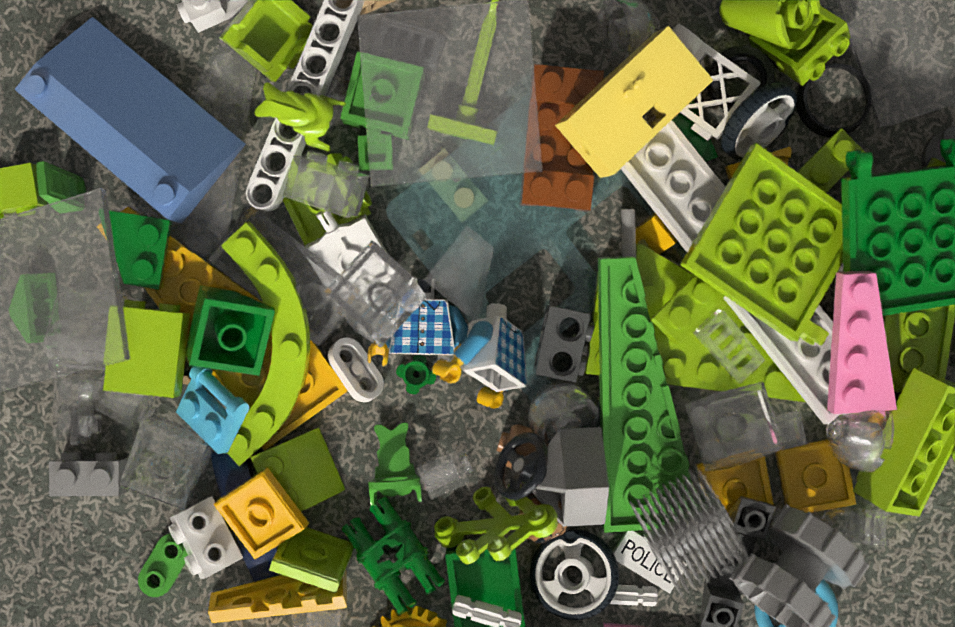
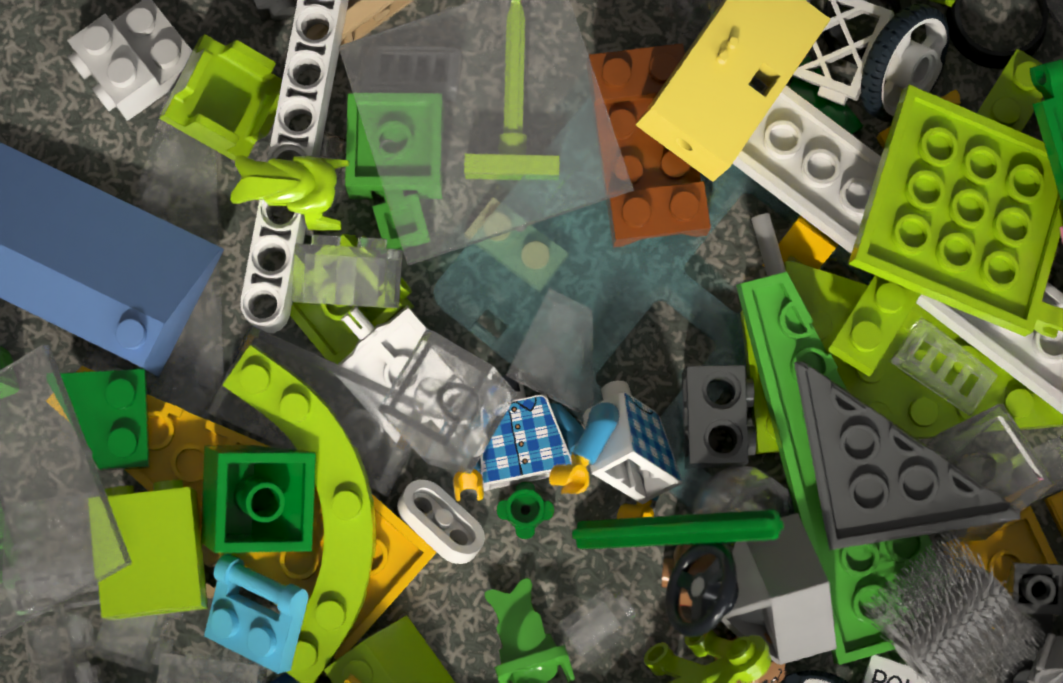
camera: 10 degrees left, 10 degrees down
(516, 421) = (679, 529): none -> green axle
(663, 416) = (881, 479): none -> dark grey tile

